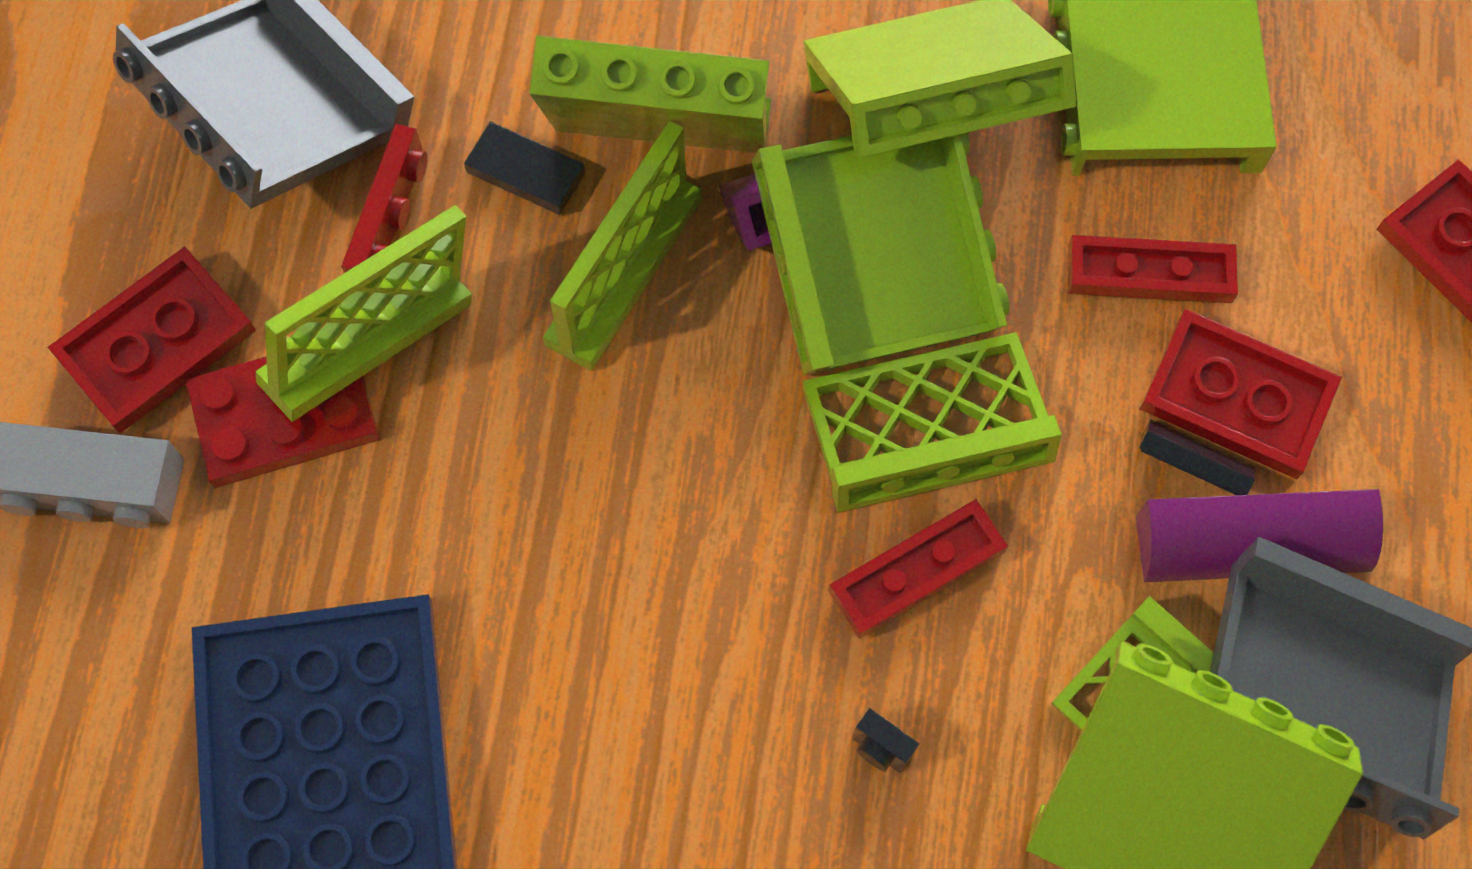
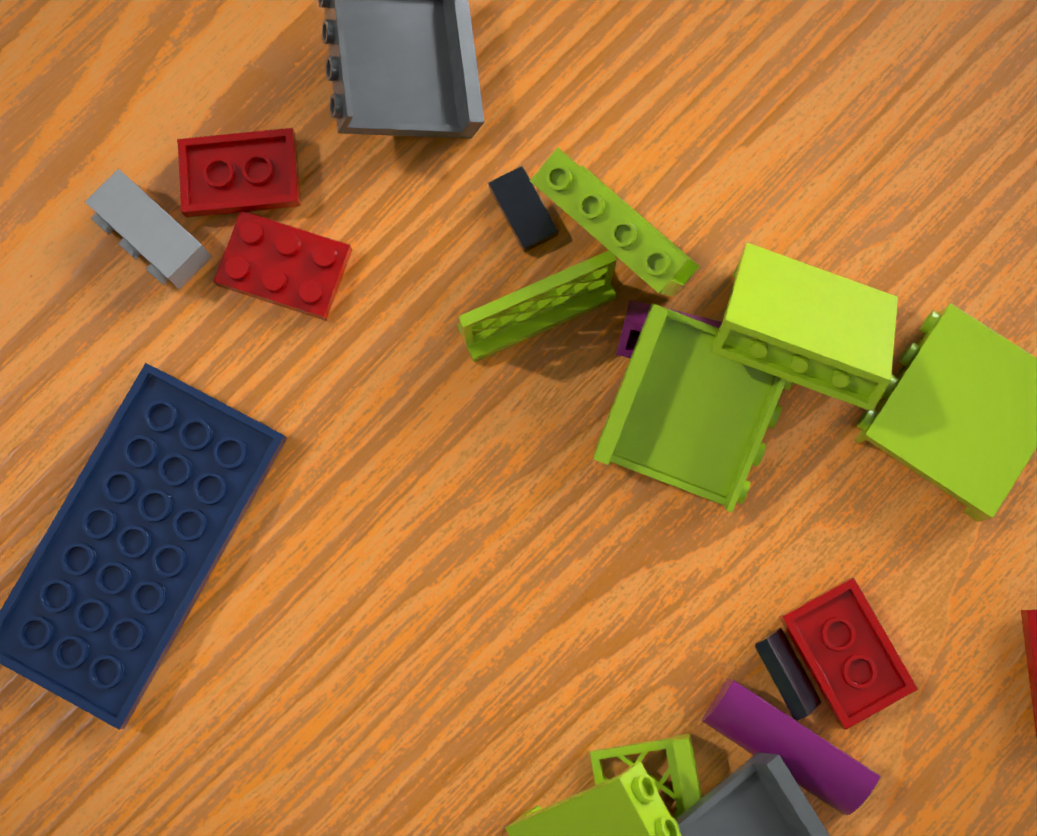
camera: 40 degrees right, 10 degrees up
(383, 310) = (357, 248): lime fence -> none
(388, 200) = (421, 181): red plate -> none
(883, 742) = (472, 706): black plate -> none
(917, 568) = (571, 618): red plate -> none
(940, 463) = (639, 567): lime fence -> none
(1152, 269) = (855, 537): red plate -> none

